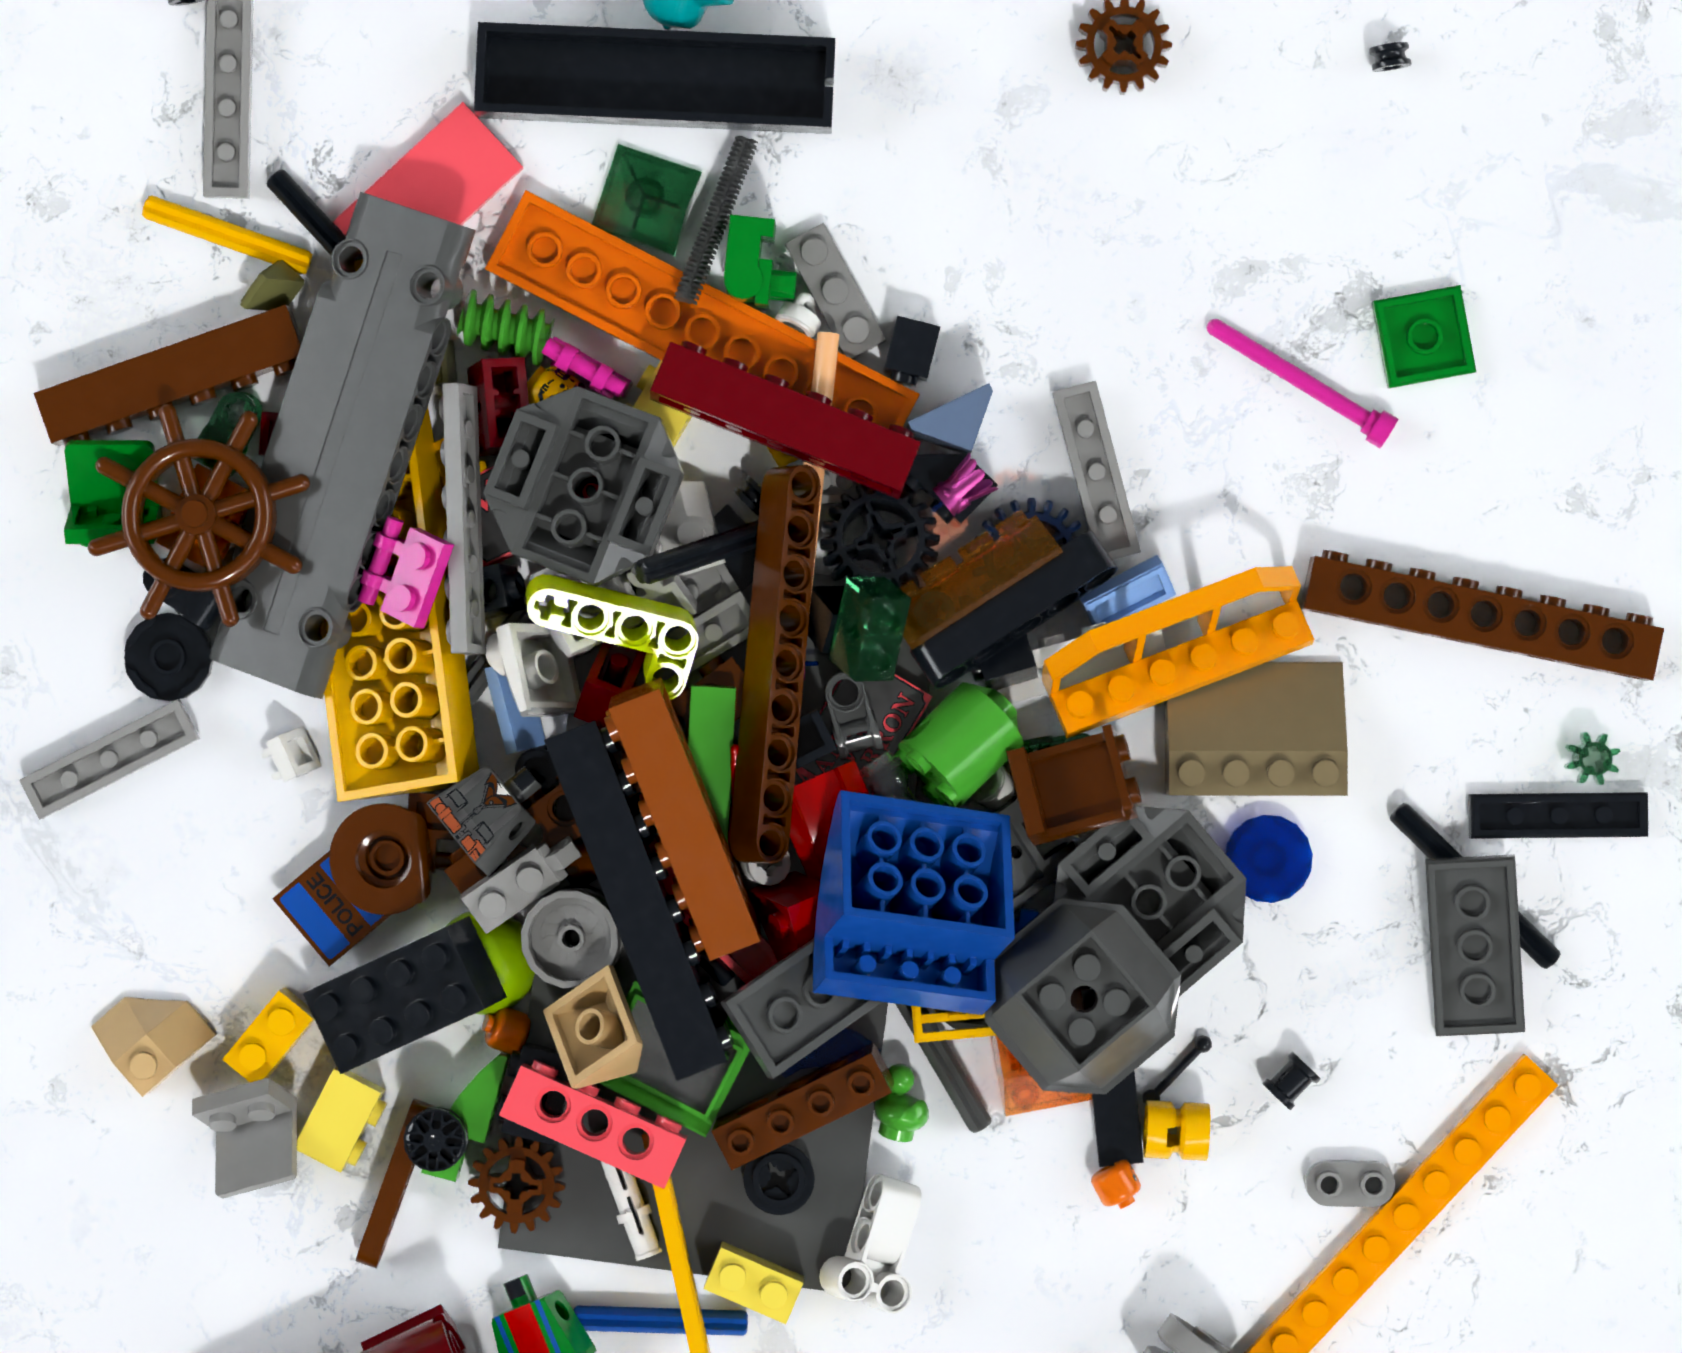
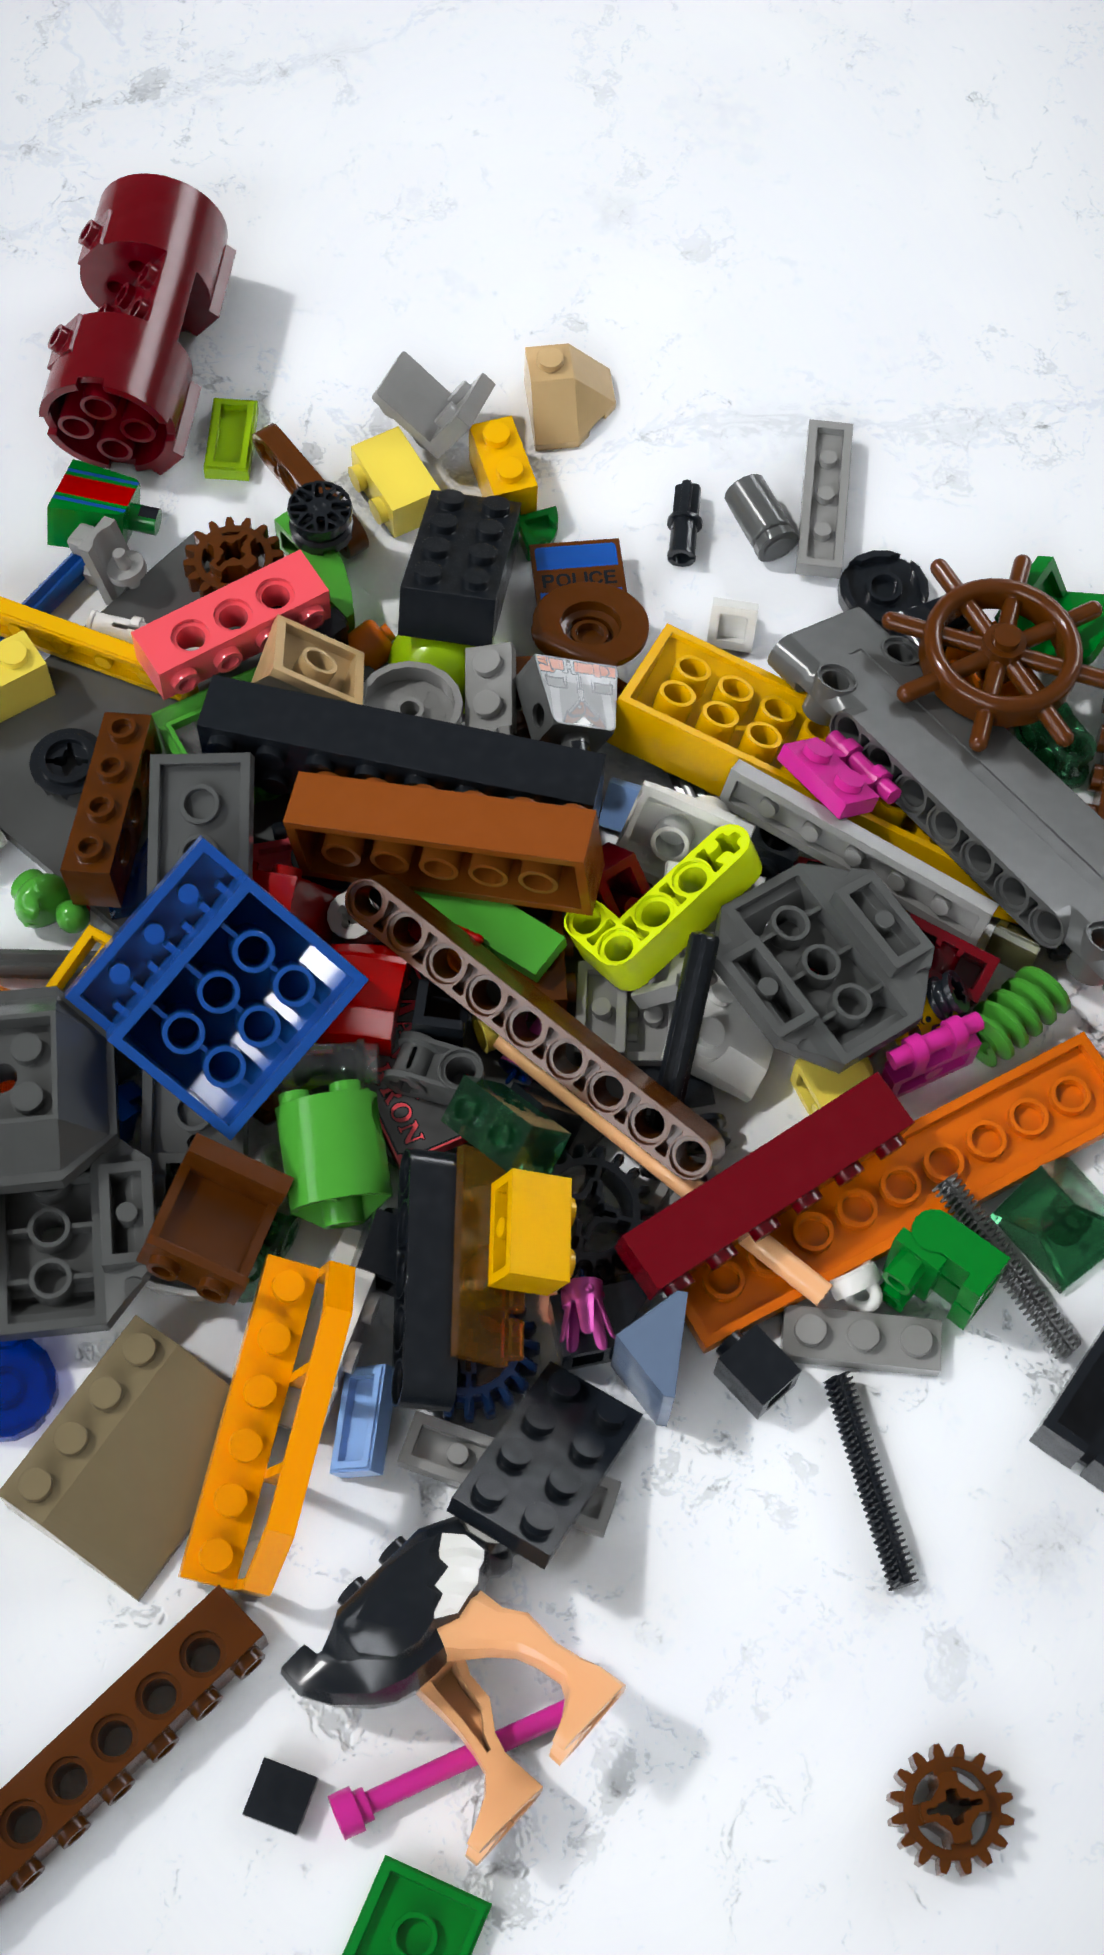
camera: 115 degrees right, 25 degrees down
(169, 797) = (761, 517): none -> dark grey piece
(213, 859) = (684, 524): none -> black axle
(301, 974) = (538, 528): none -> green tile
(383, 1290) = (230, 439): none -> lime tile
(540, 380) = (947, 995): none -> black bush
(583, 1283) = (107, 558): none -> light grey hips
(933, 225) = (869, 1482): none -> black axle
(938, 556) = (531, 1232): none -> yellow brick
(1080, 446) = (545, 1464): none -> black plate
(1242, 449) = (411, 1636): none -> animal
(1399, 479) = (280, 1796): none -> black tile

